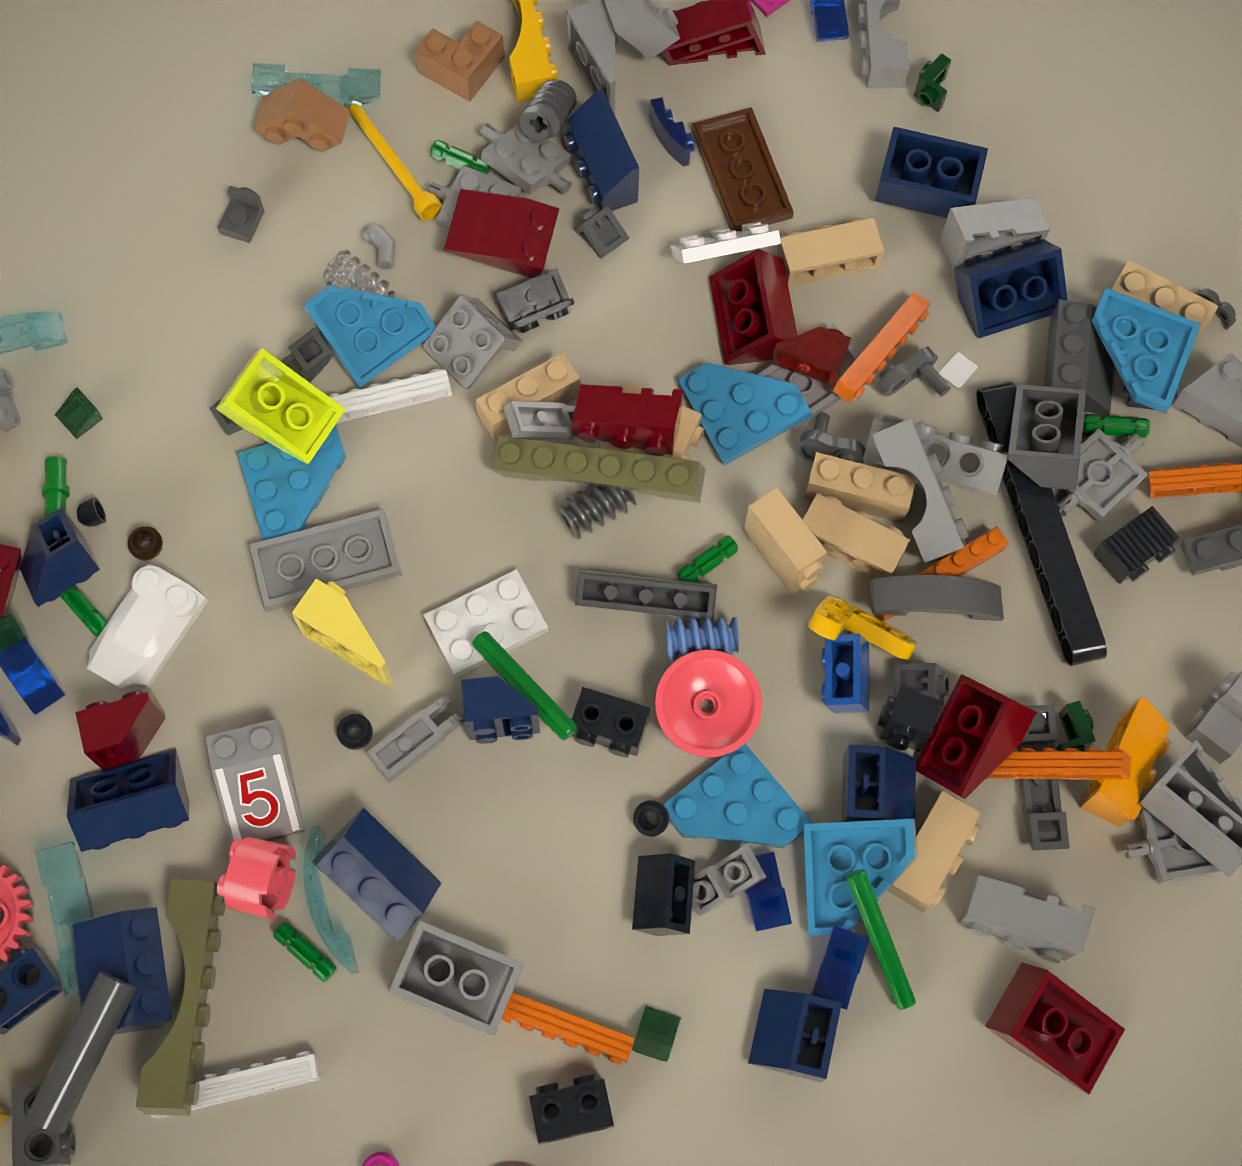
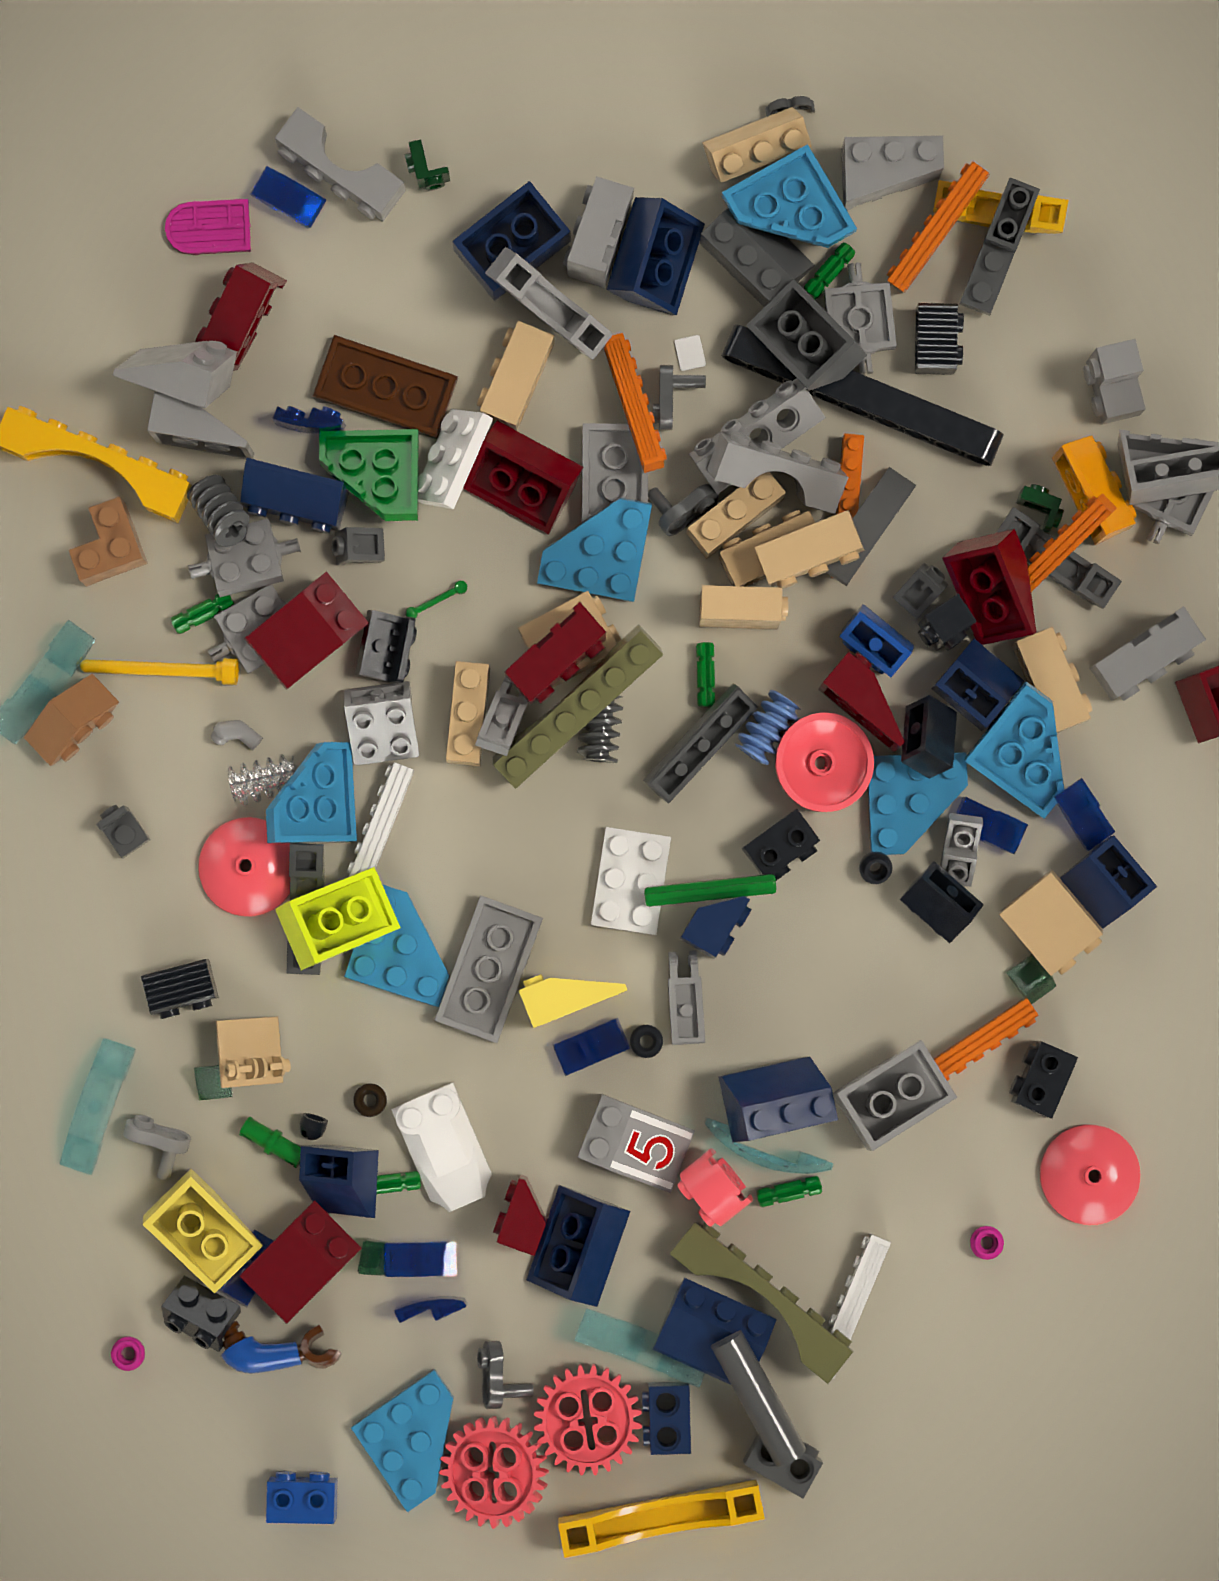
camera: 55 degrees left, 15 degrees up
(120, 421) = (250, 1052): none -> tan hinge
(139, 336) = (179, 988): none -> black brick
(255, 329) = (238, 891): none -> coral dish
(317, 689) = (591, 1046): none -> clear blue slope
(628, 328) = (460, 588): none -> green hinge
(672, 199) = (376, 468): none -> green plate
(719, 1010) = (1052, 924): none -> tan brick
(791, 678) = (858, 694): none -> dark red slope
(799, 775) = (929, 736): none -> black brick
(814, 354) = (605, 461): clear red slope -> none
(835, 615) = (828, 607): yellow beam -> none
(878, 554) = (810, 550): none -> tan brick
(881, 939) = (1088, 771): green axle -> none
(906, 222) = (548, 303): none -> light grey arch

